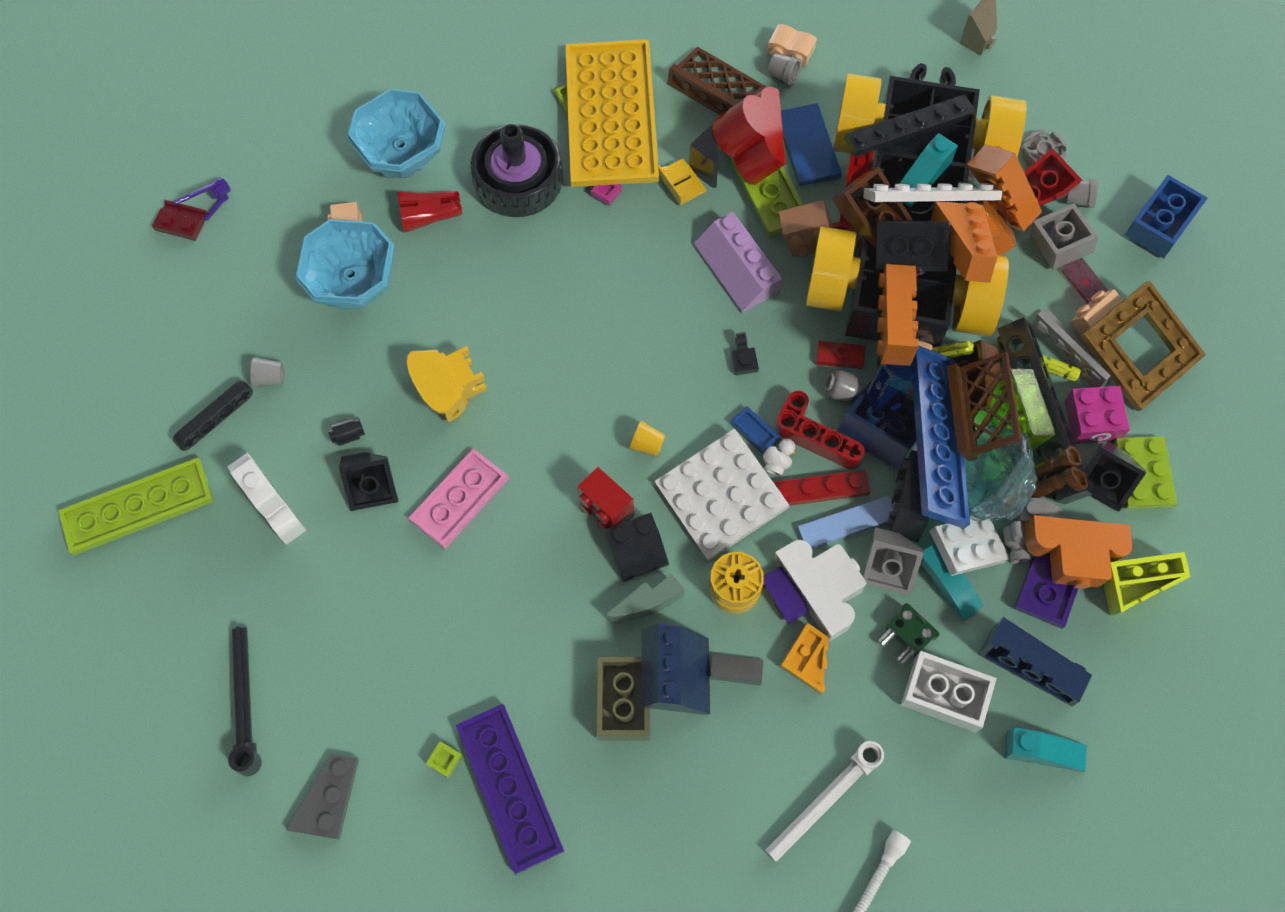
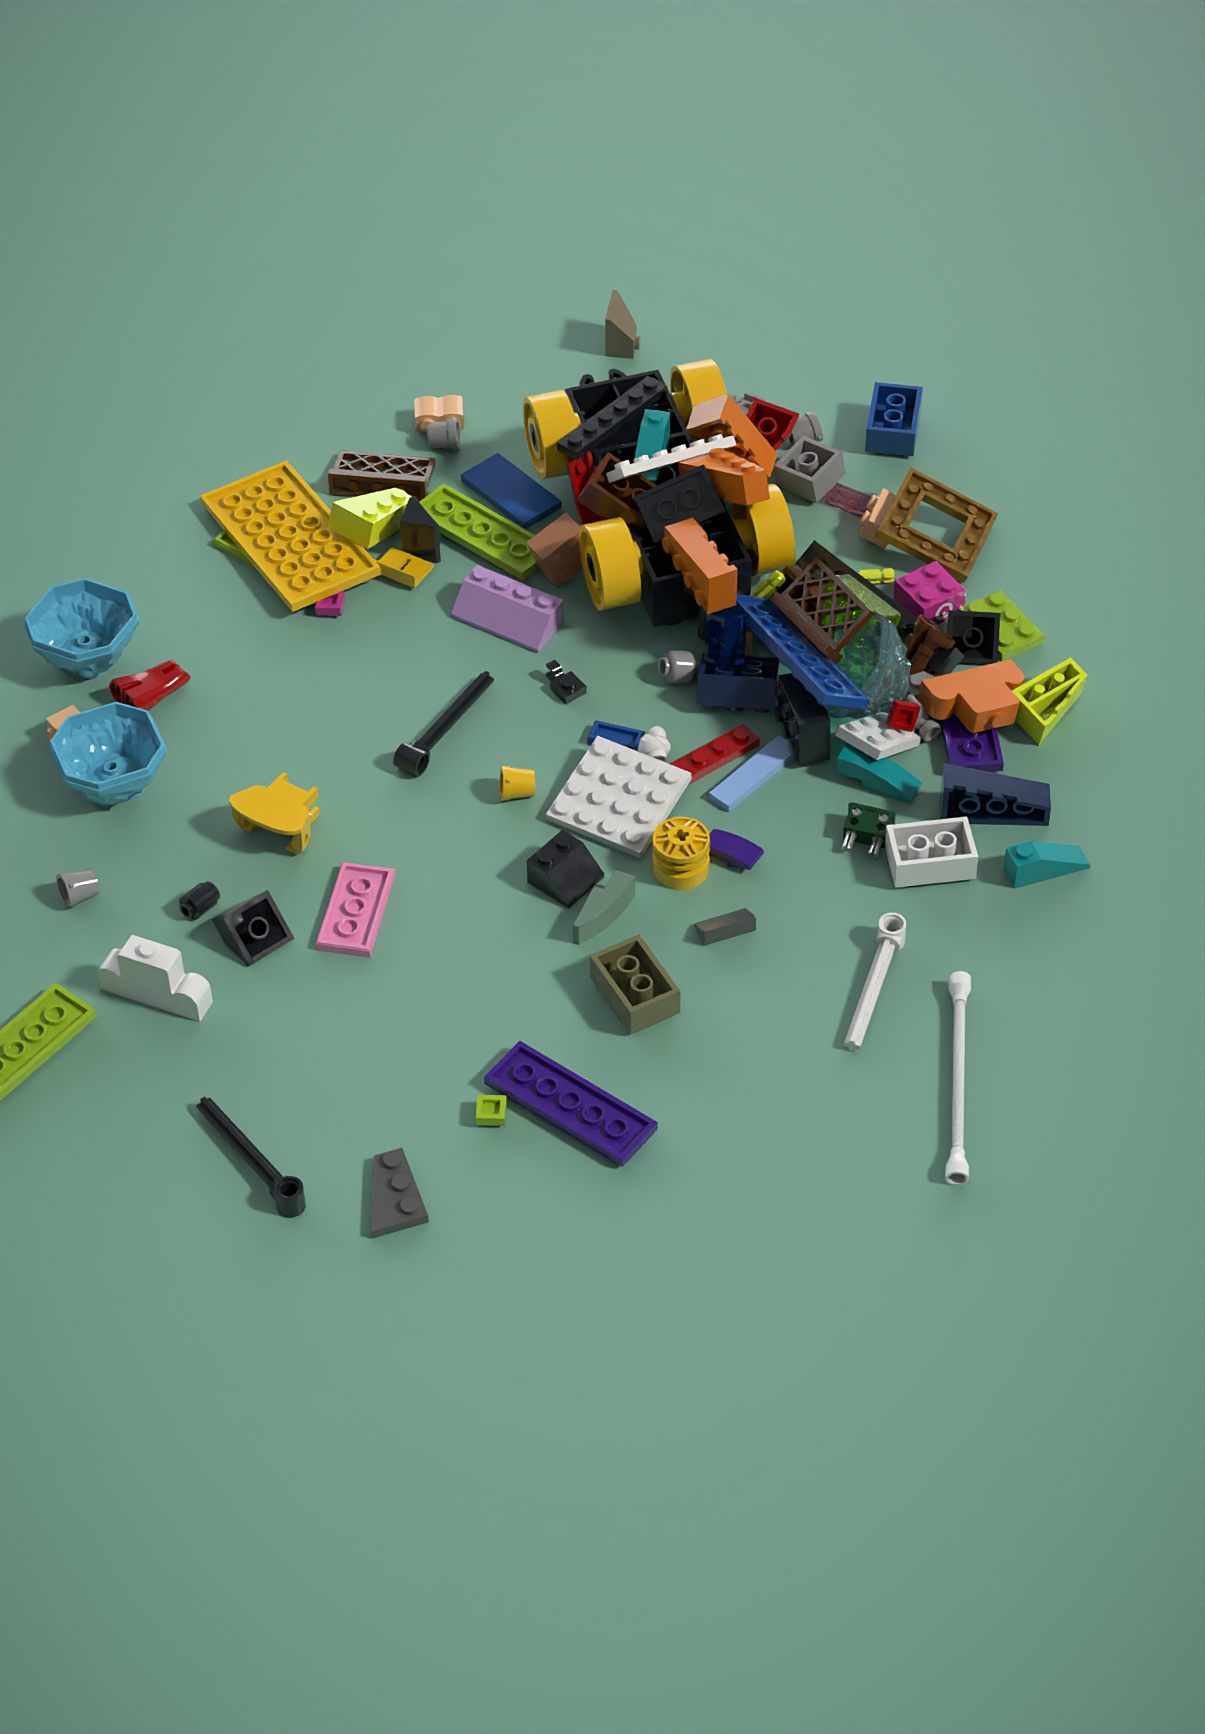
camera: 30 degrees left, 20 degrees down
(212, 415) = (43, 945): black beam -> none
(517, 170) = (226, 615): black wheel -> none
(585, 372) = (416, 755): none -> black piece
(605, 499) = (509, 839): red brick -> none
(675, 125) = (369, 516): none -> neon yellow wedge
(675, 670) = (666, 935): dark blue slope -> none
(753, 135) = (459, 492): red brick -> none
(808, 658) = (787, 887): light orange wing -> none
(821, 434) = (680, 715): red beam -> none
(823, 583) = (767, 819): white brick -> none
(840, 355) = (655, 646): red plate -> none
(892, 562) = (816, 781): light grey slope -> none
(1000, 539) = (903, 715): none -> red plate
(1070, 348) = (871, 555): light grey fence -> none

